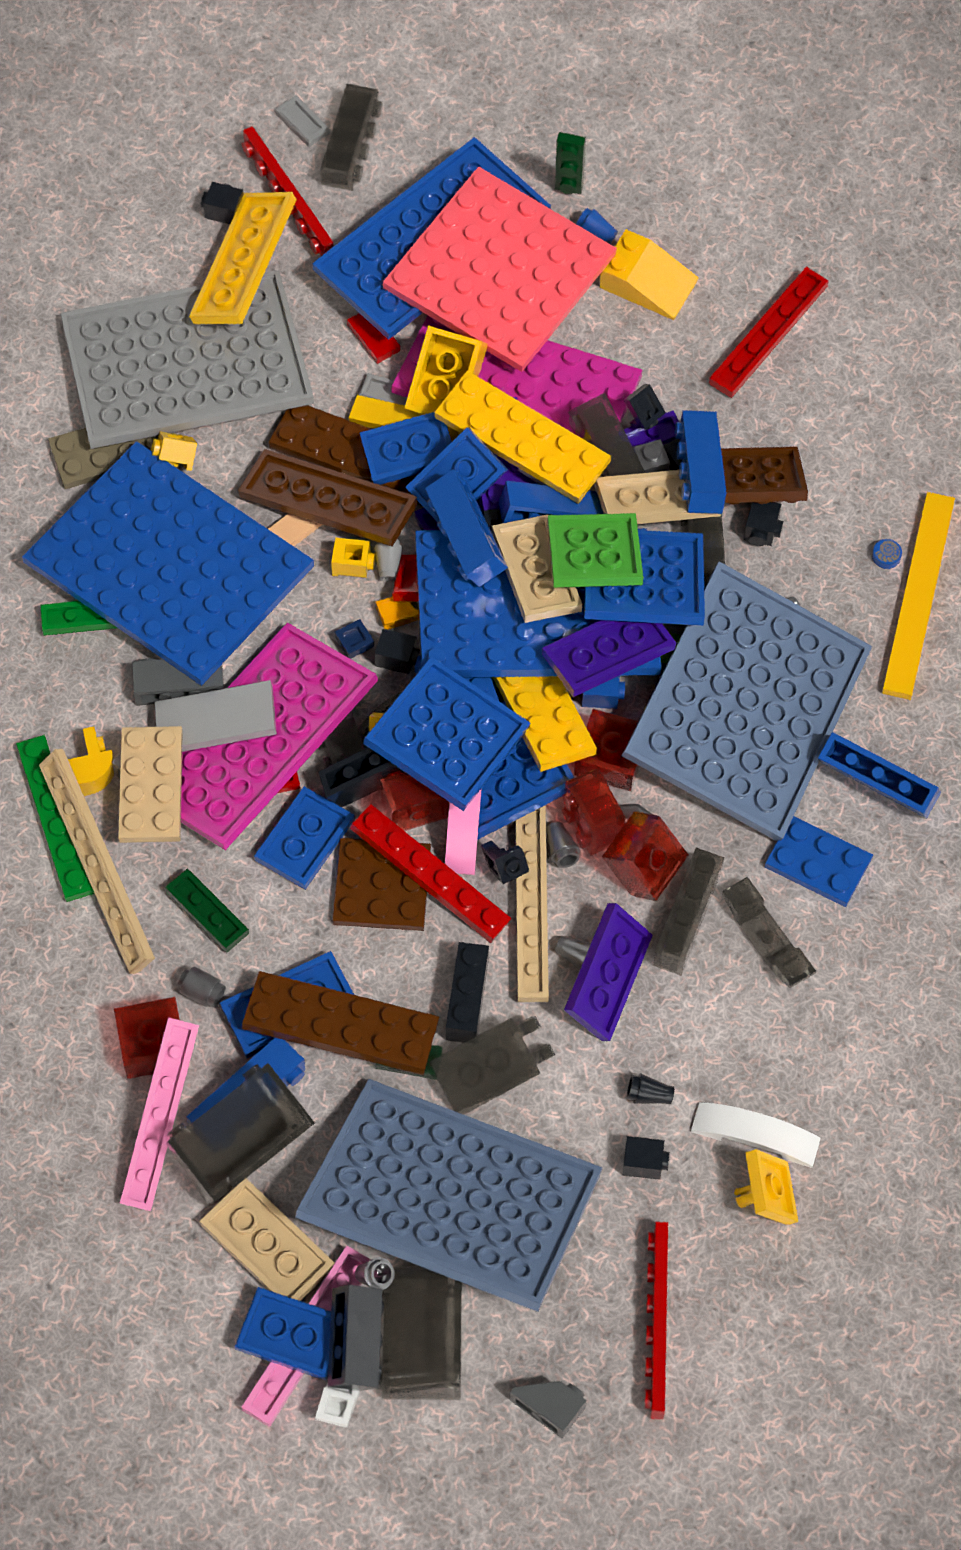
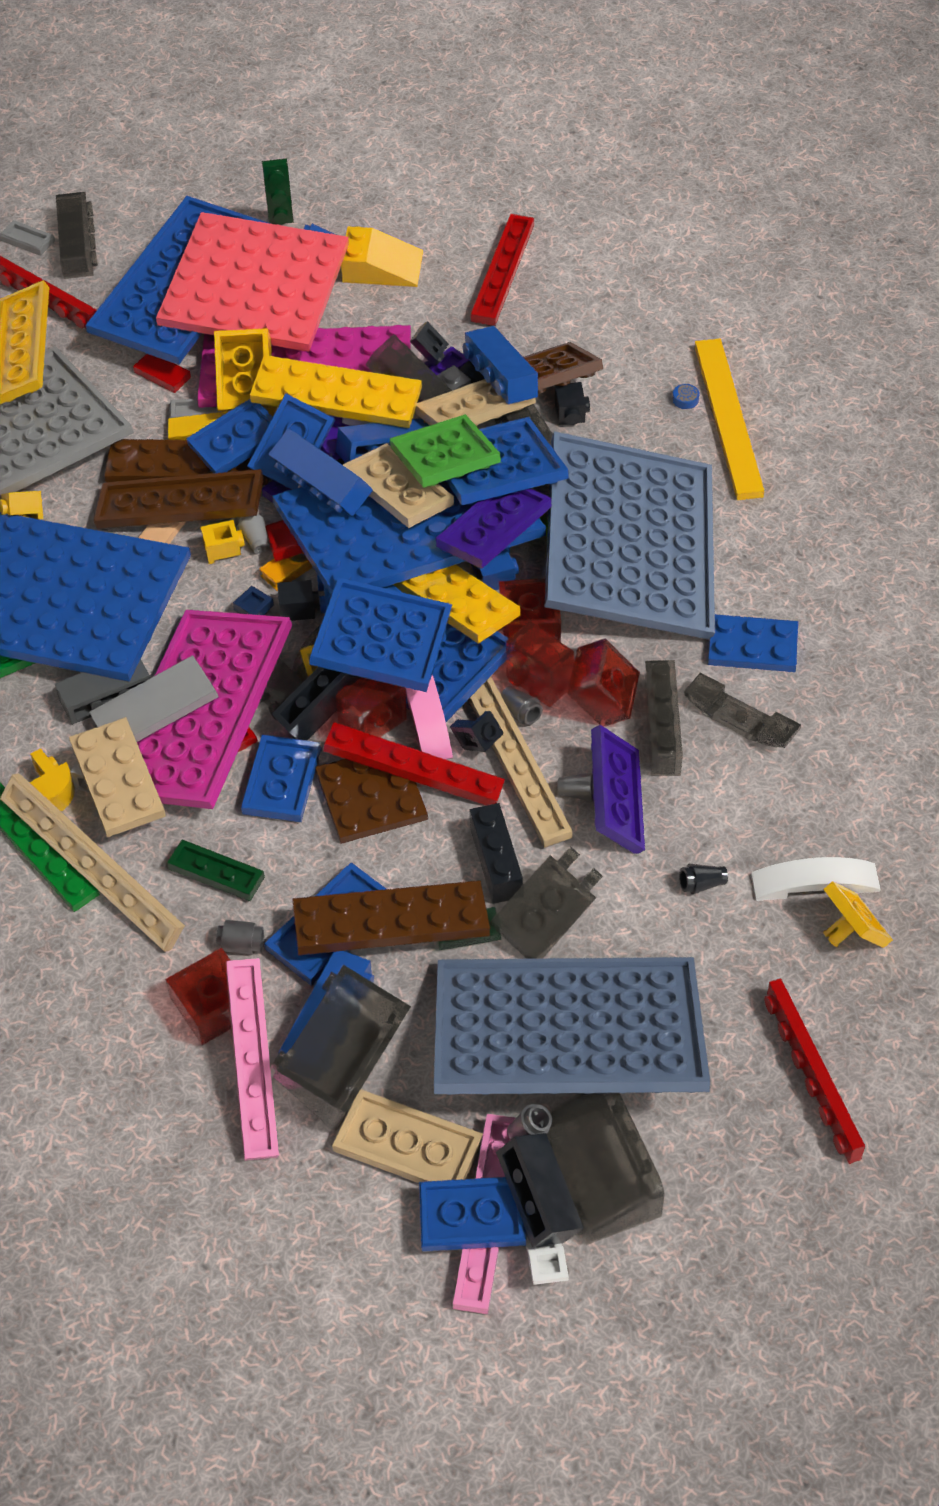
camera: 20 degrees left, 10 degrees down
(551, 1404) = (751, 1184): dark grey slope -> none
(645, 1158) = (728, 934): black brick -> none
(879, 775) = (772, 555): blue brick -> none

